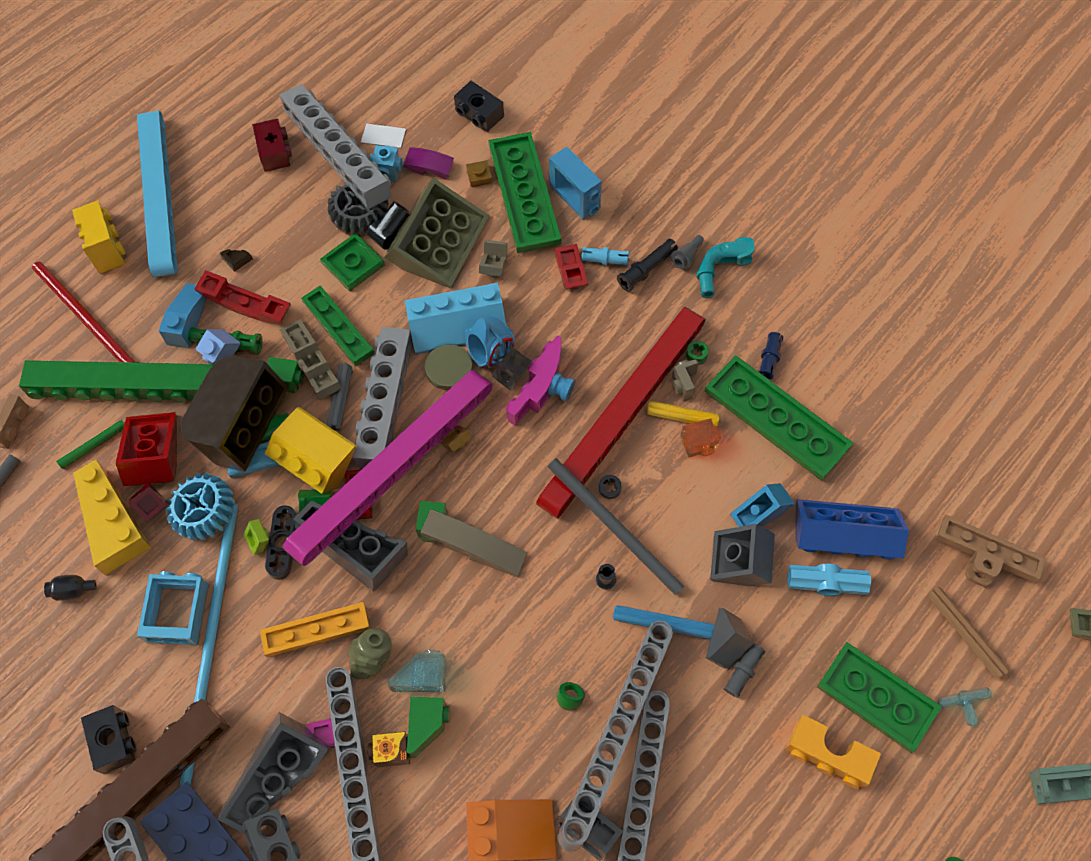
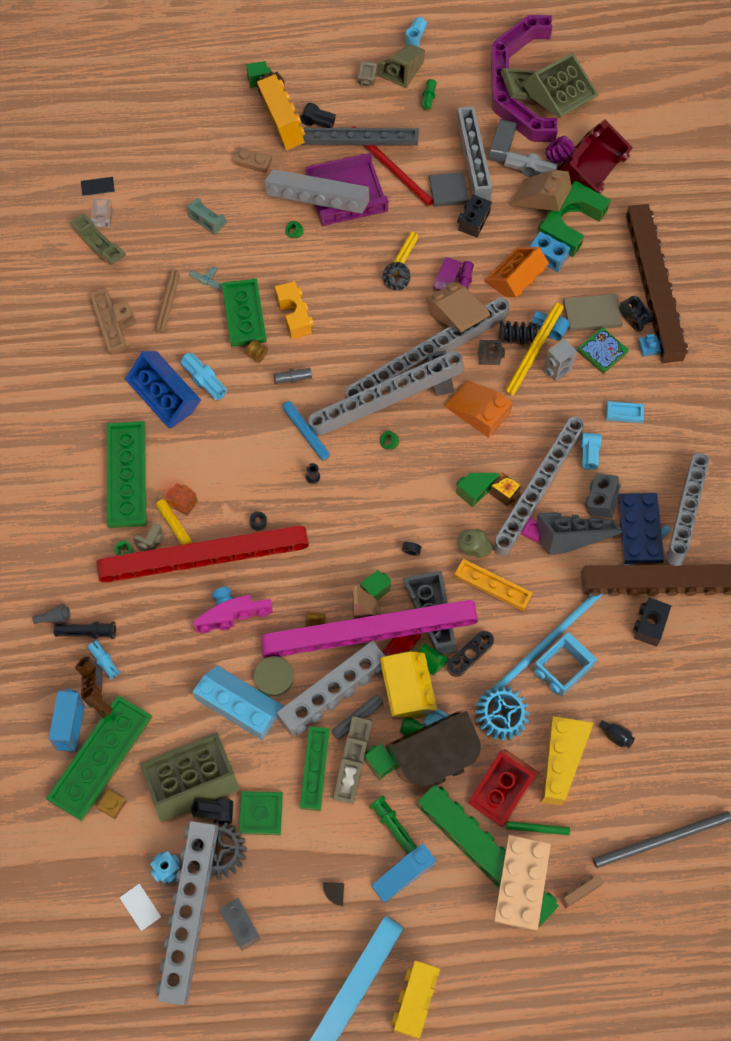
camera: 140 degrees left, 0 degrees up
(64, 375) = (522, 883): none -> light nougat plate
(81, 313) = (474, 943): red piece -> none
(147, 502) = (532, 743): dark red brick -> none
(217, 345) = (406, 812): light blue brick -> none
(241, 300) = (357, 845): red slope -> none
(256, 537) = (483, 665): lime plate -> none
(271, 144) = (237, 962): dark red brick -> none
(289, 175) = (240, 924): none -> dark grey brick
(417, 479) = (364, 604): none -> medium nougat slope
(421, 674) = (456, 511): clear light blue slope -> none
(426, 160) = (135, 845): magenta slope -> none
(432, 591) = (411, 548): none -> black tile
(474, 543) = (365, 551): dark tan slope -> none
(479, 106) = (50, 846): black brick -> none
(489, 341) = (237, 656): dark azure piece -> none
(494, 258) = (174, 721): dark tan bracket -> none
(511, 368) = (241, 631): clear smoke brick -> none
(570, 267) = (132, 674): red slope -> none
(587, 221) = (92, 686): none -> reddish brown beam
(616, 527) = (281, 493): dark grey piece -> none
(727, 252) = (25, 586): teal piece -> none
(728, 639) = (283, 393): dark grey slope -> none
(743, 556) = (232, 423): dark grey slope -> none
(763, 506) = (193, 435): dark azure slope -> none
(771, 355) = (87, 509): dark blue pin -> none
(811, 661) = (256, 351): none -> pearl gold wheel

